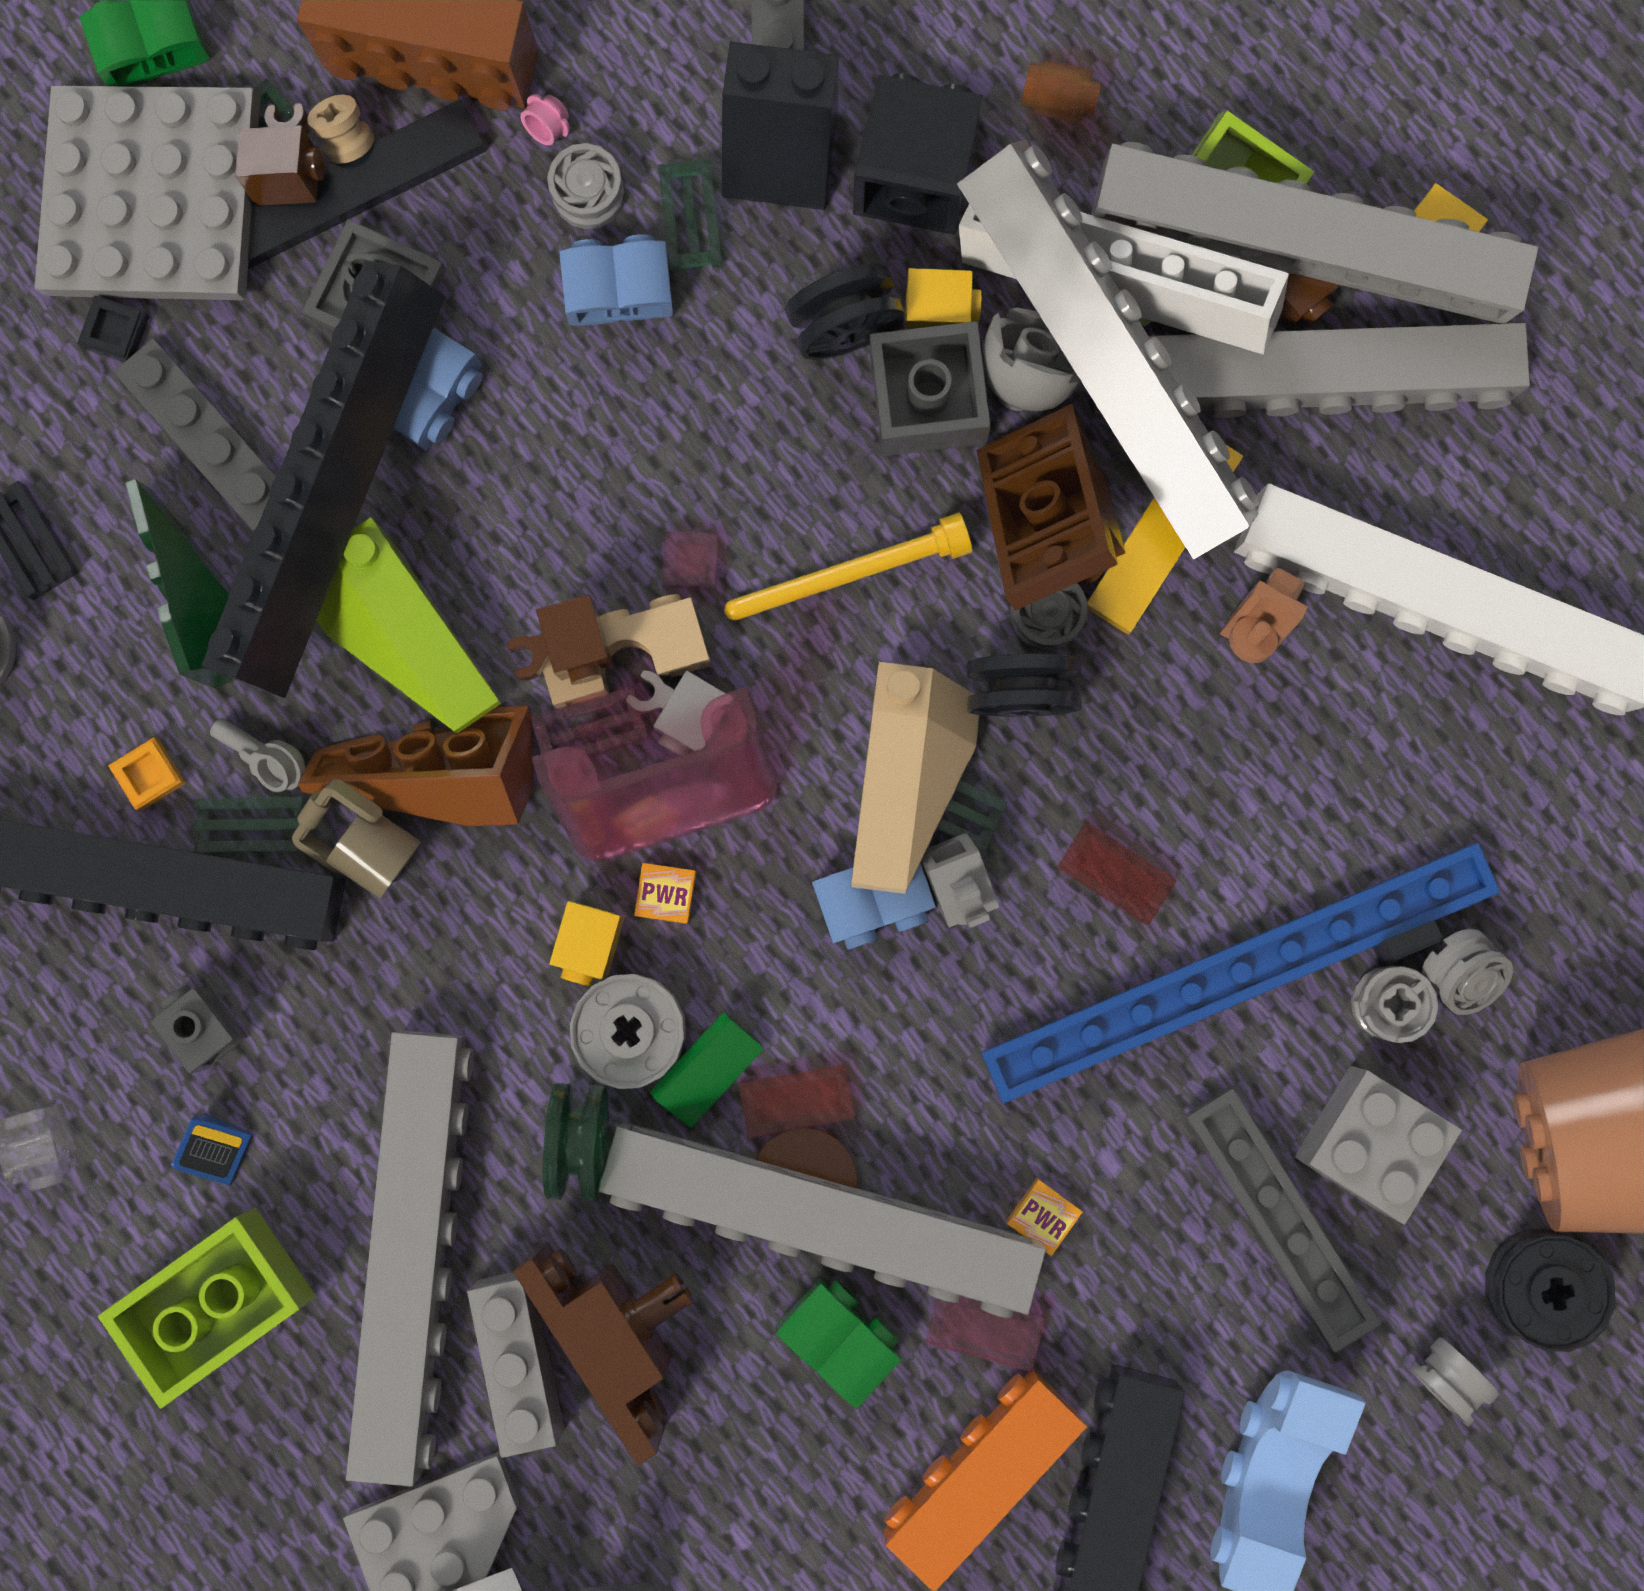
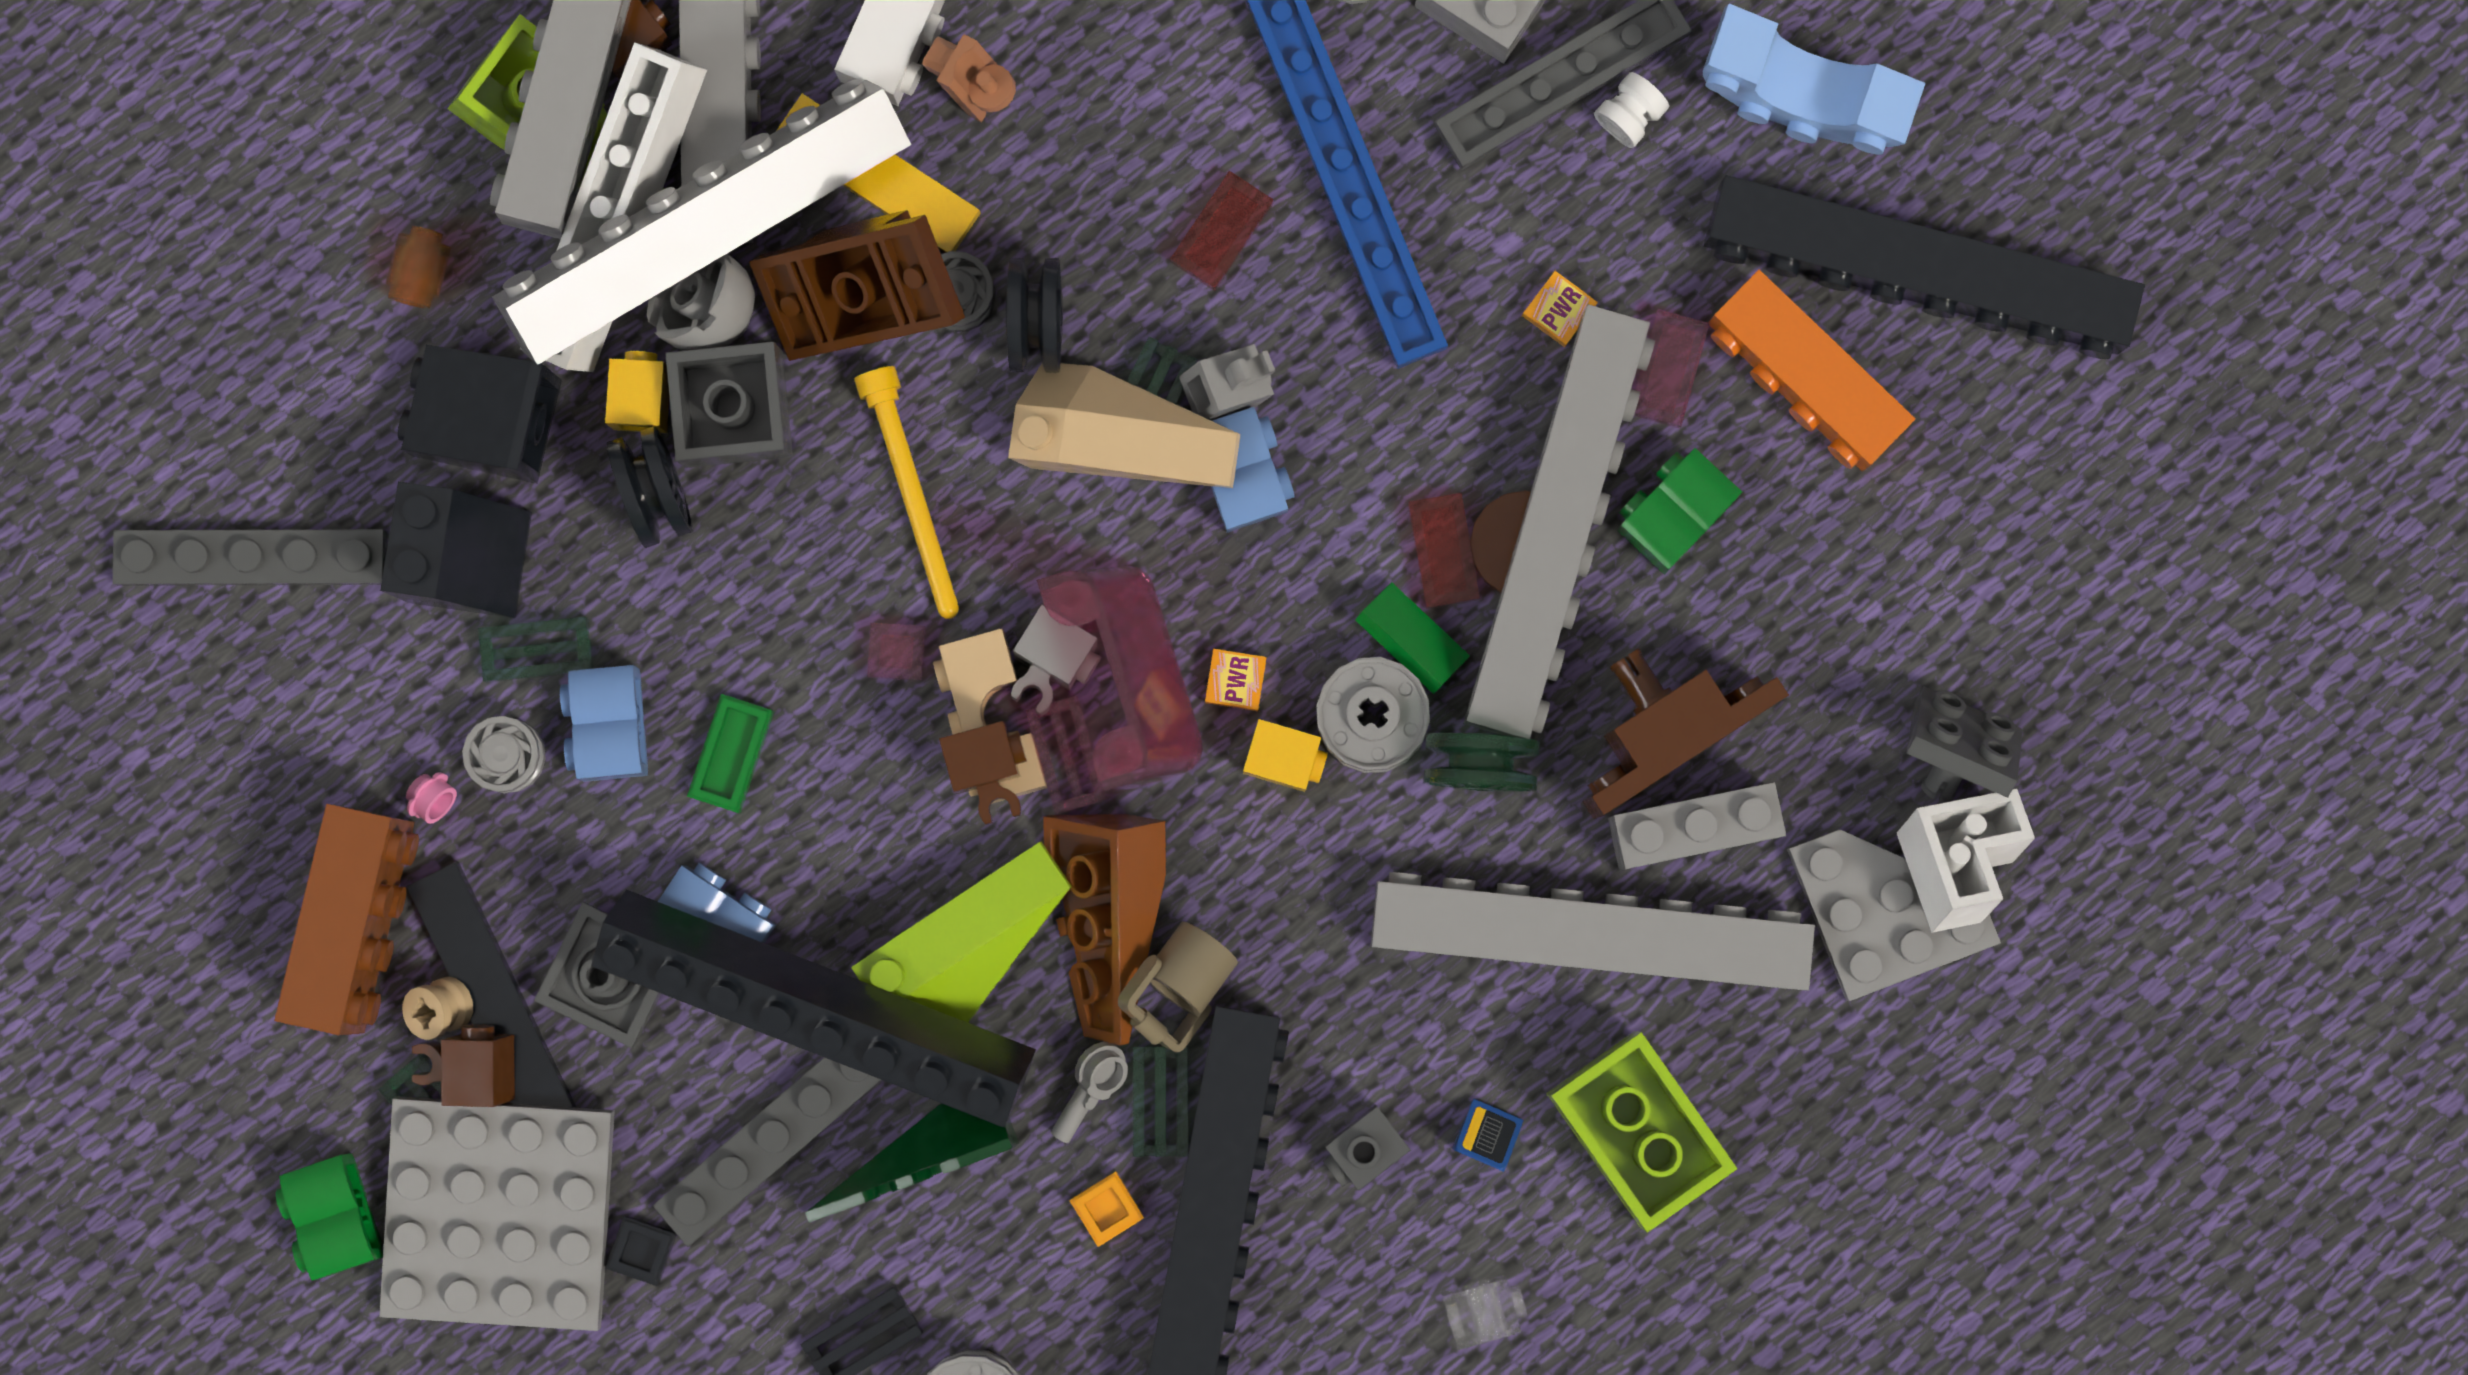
camera: 90 degrees left, 0 degrees up
(590, 403) = (730, 753): none -> green tile
(1247, 1287) = (1629, 112): none -> white wheel

